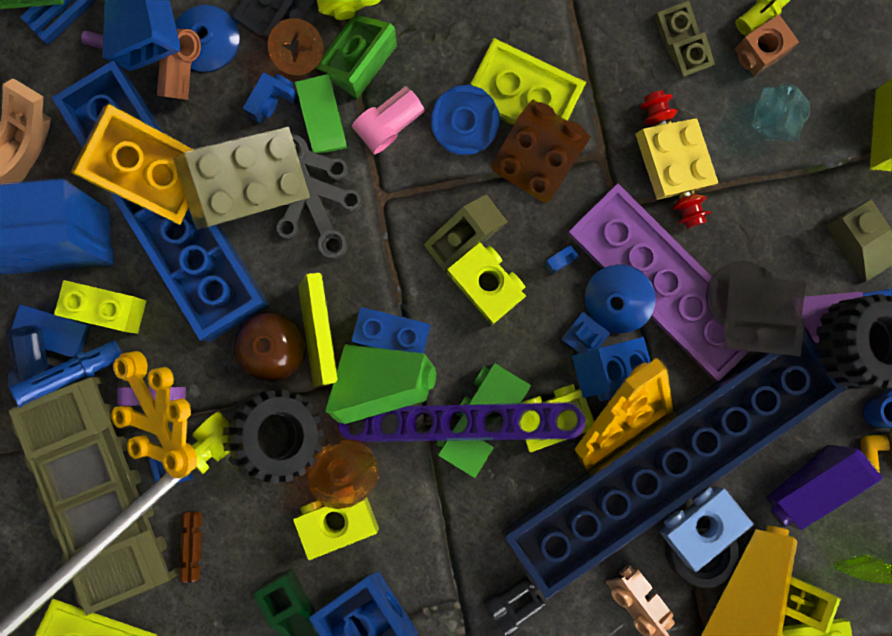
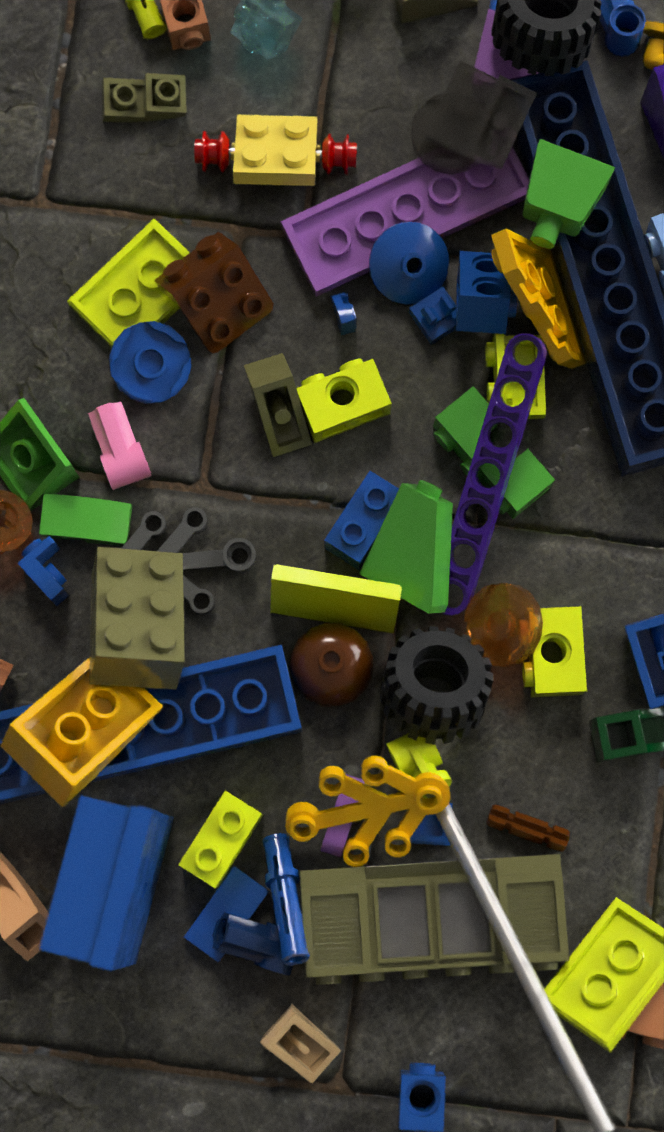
camera: 65 degrees left, 5 degrees down
(720, 406) = (562, 192): none -> bright green torso

